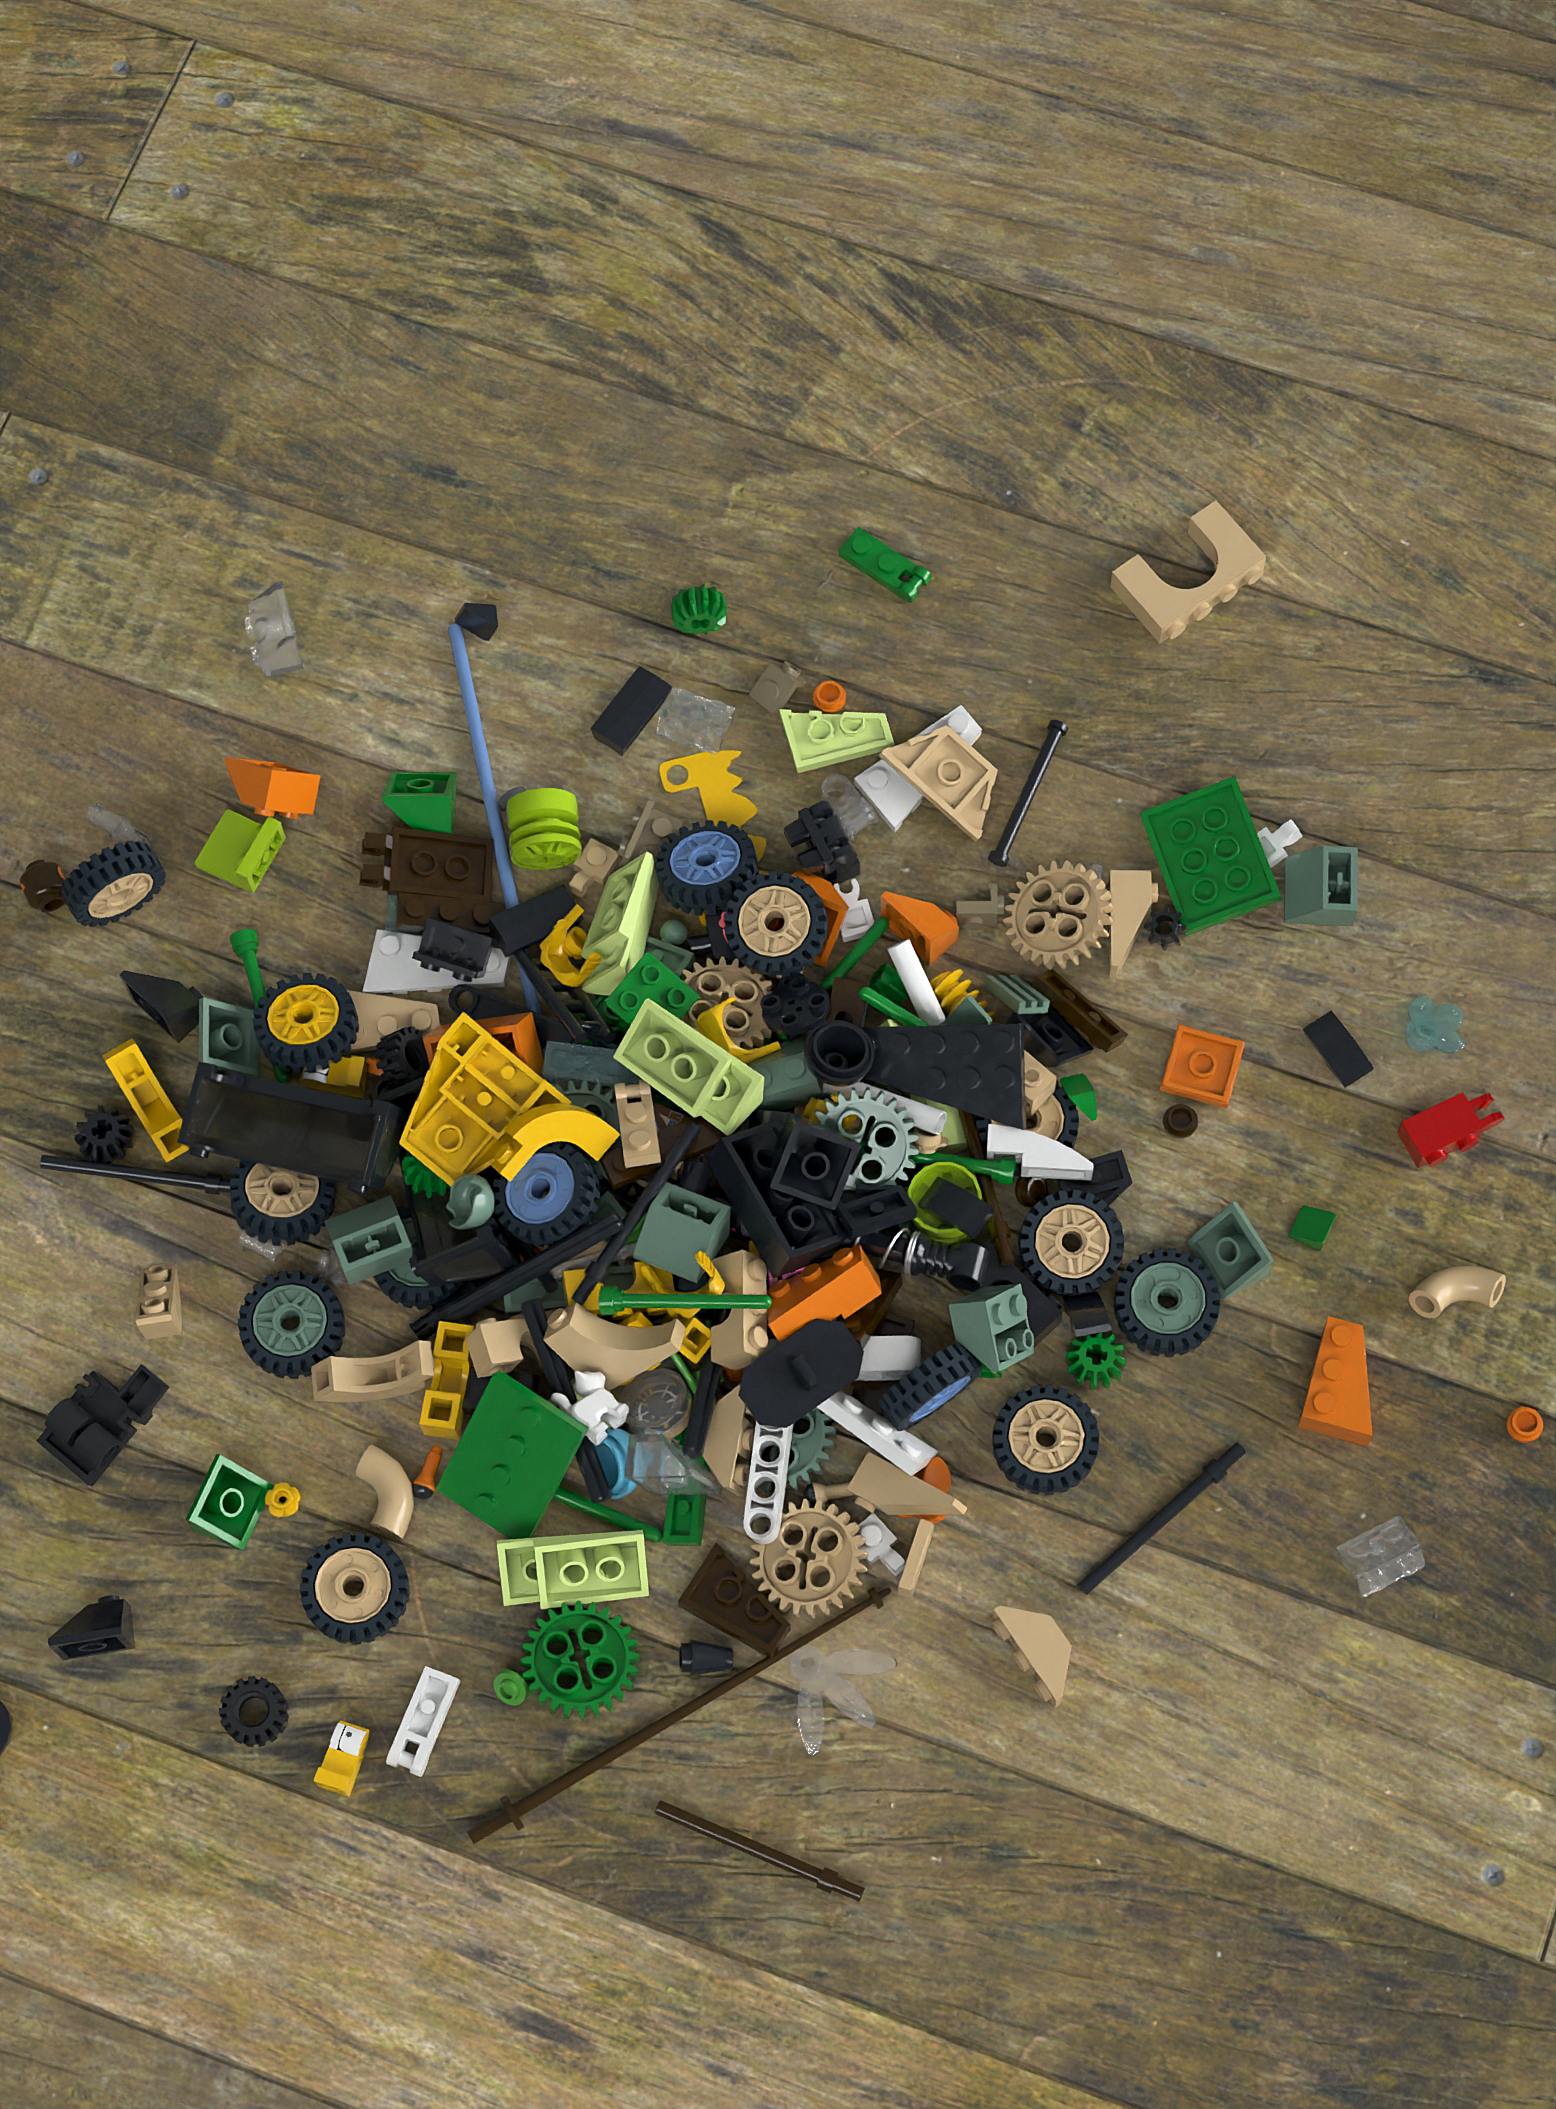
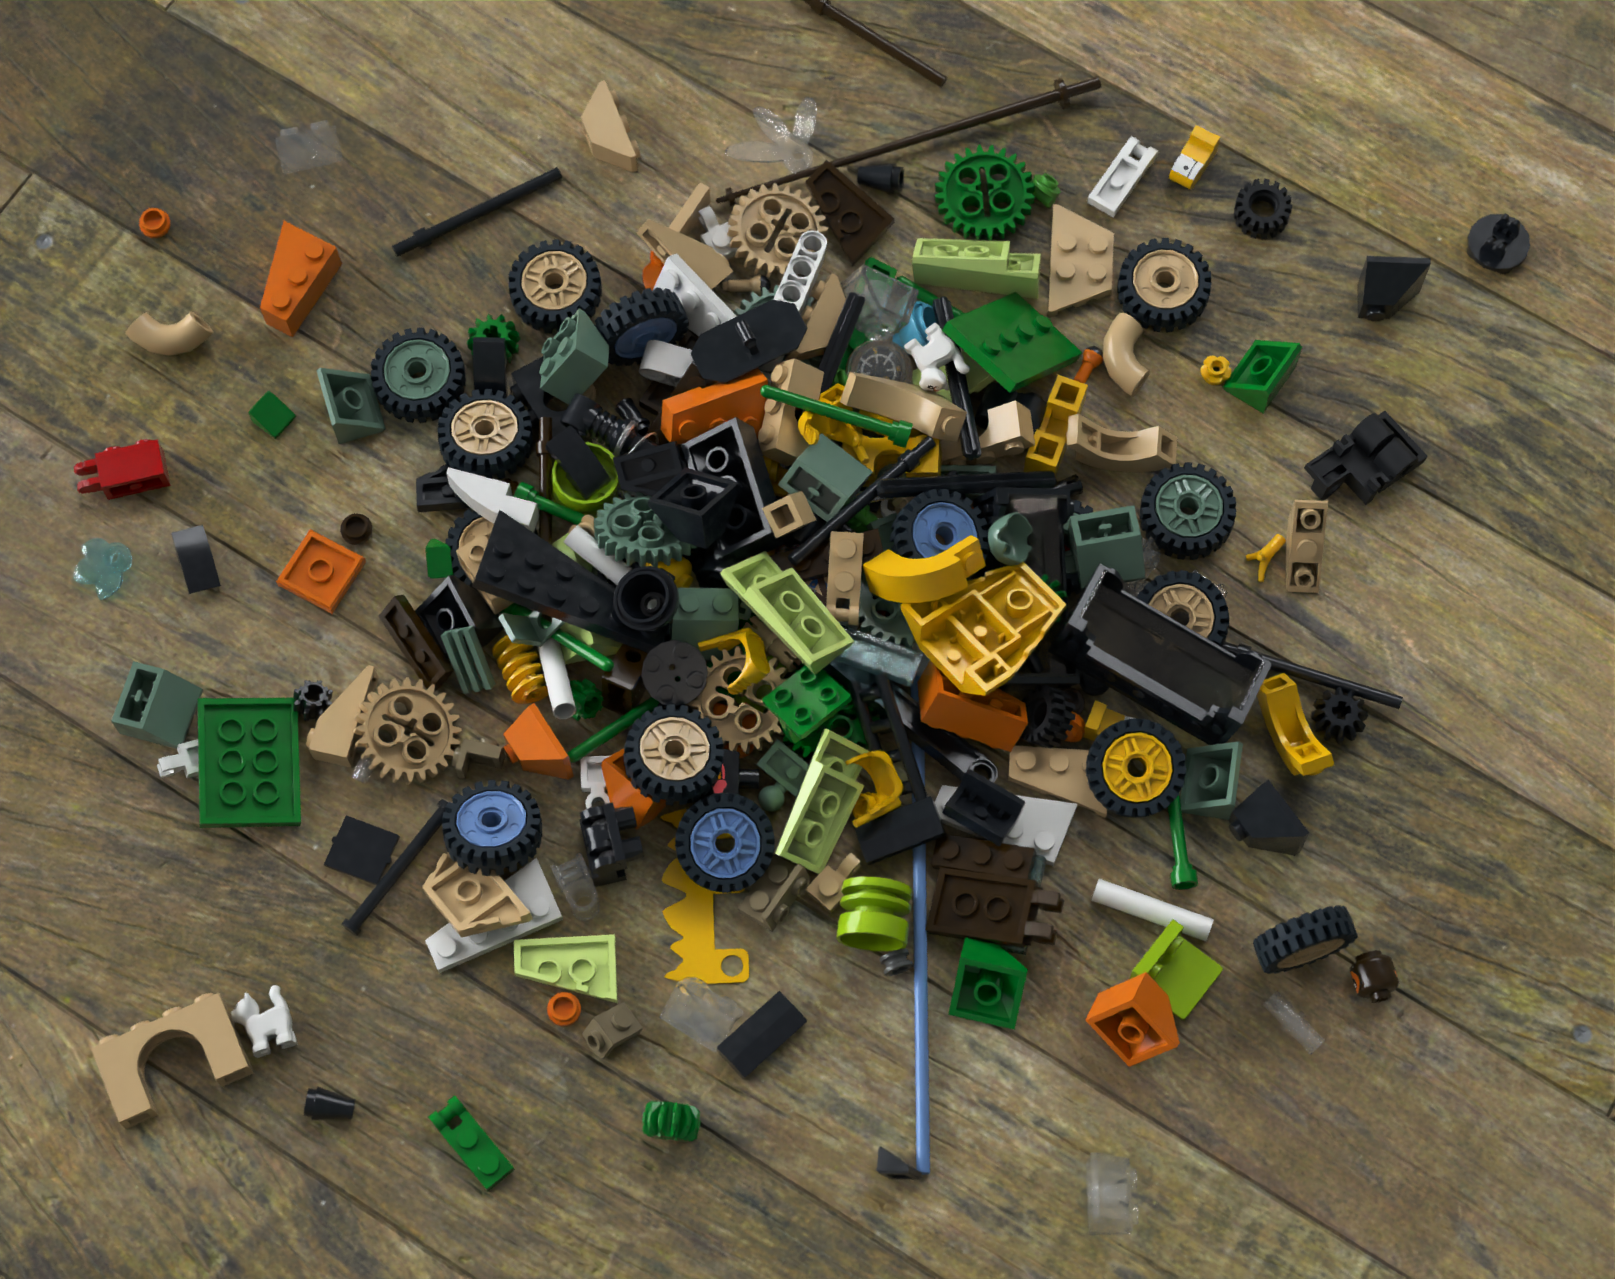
camera: 170 degrees left, 0 degrees up
(201, 1299) = (1266, 554): none -> yellow bar
(271, 905) = (1151, 909): none -> white piece
(458, 1603) = (1078, 261): none -> tan wing
(708, 1167) = (789, 514): none -> tan brick
(917, 1304) = (628, 410): none -> black pin
(970, 828) = (492, 827): none -> wheel
(1029, 565) = (325, 1104): none -> black cone
(1071, 804) = (361, 850): none -> black piece
(1110, 620) = (265, 1026): none -> white animal

